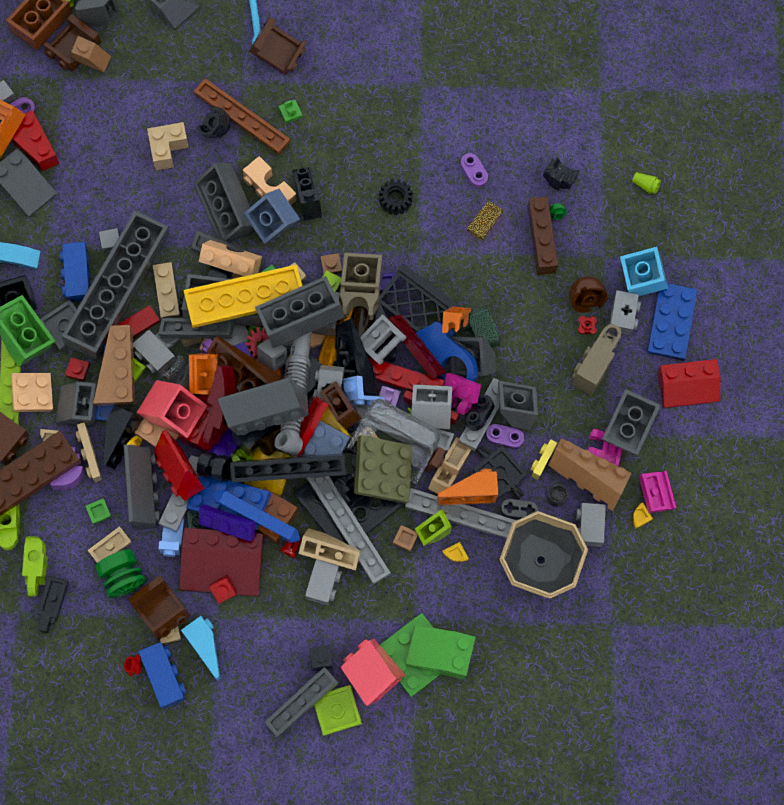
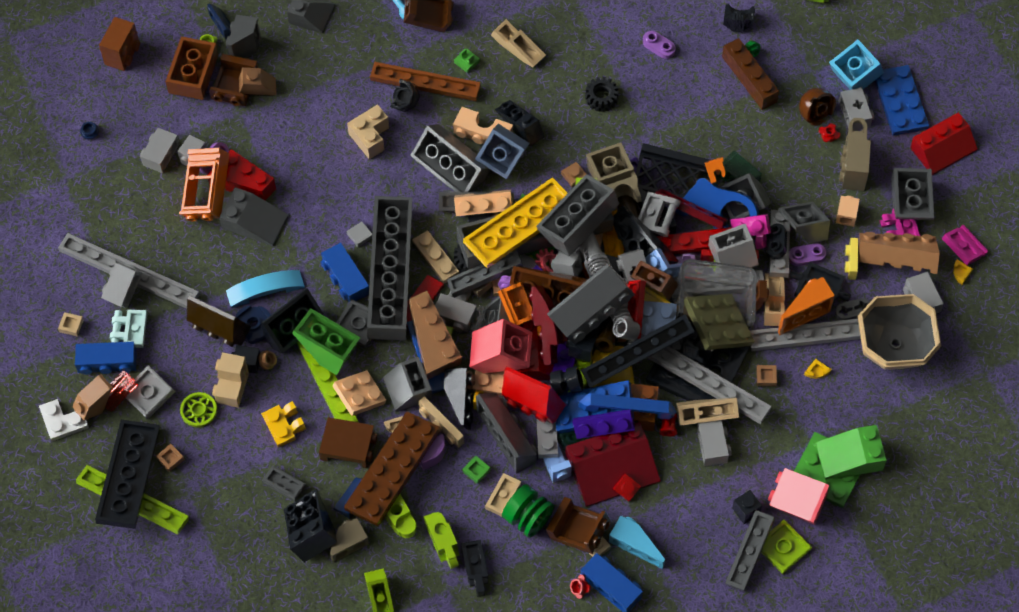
camera: 20 degrees left, 10 degrees down
(77, 369) = (389, 357): red plate -> none
(344, 115) = (518, 43): none -> tan slope
(434, 528) = (790, 352): lime slope -> none
(485, 220) = (692, 82): clear yellow plate -> none
(560, 493) = (880, 279): clear smoke wheel -> none
(563, 409) = (847, 210): none -> light nougat brick

